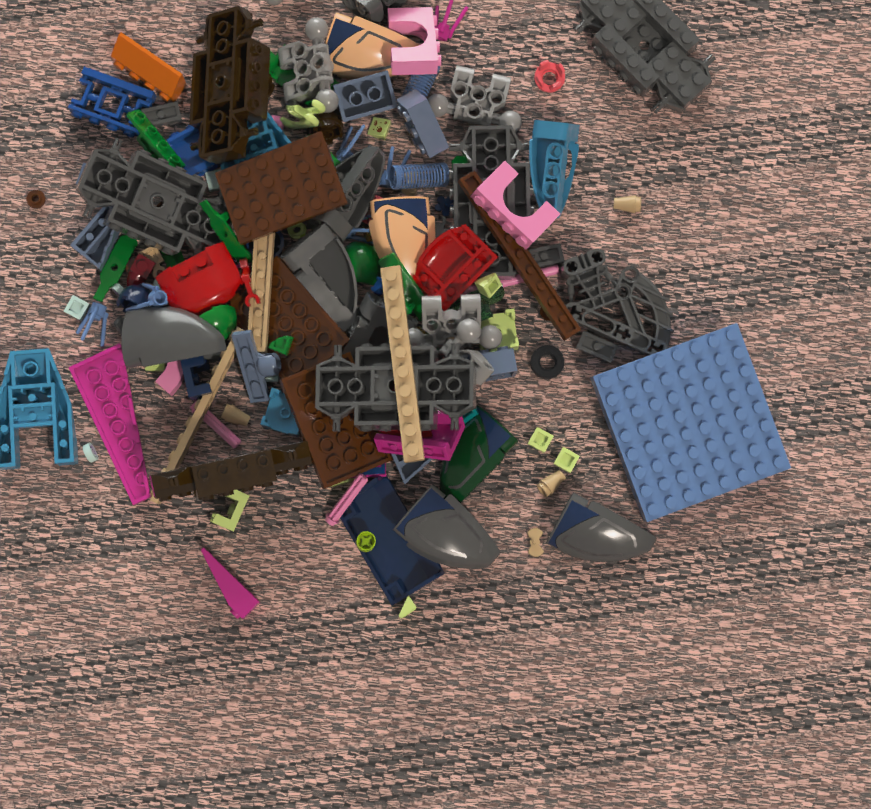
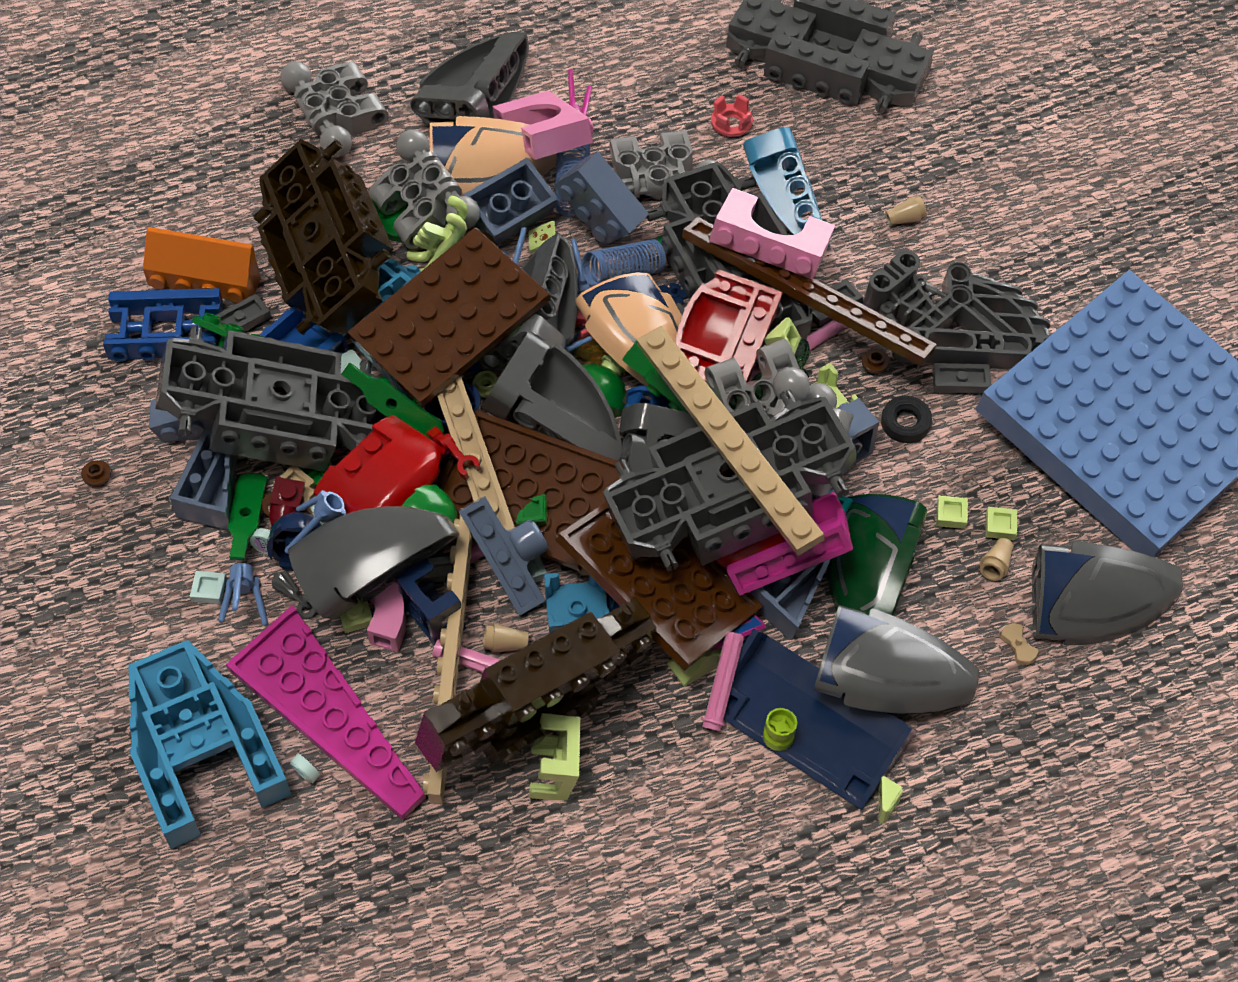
camera: 20 degrees left, 25 degrees down
(235, 593) = (616, 880): dark pink slope -> none

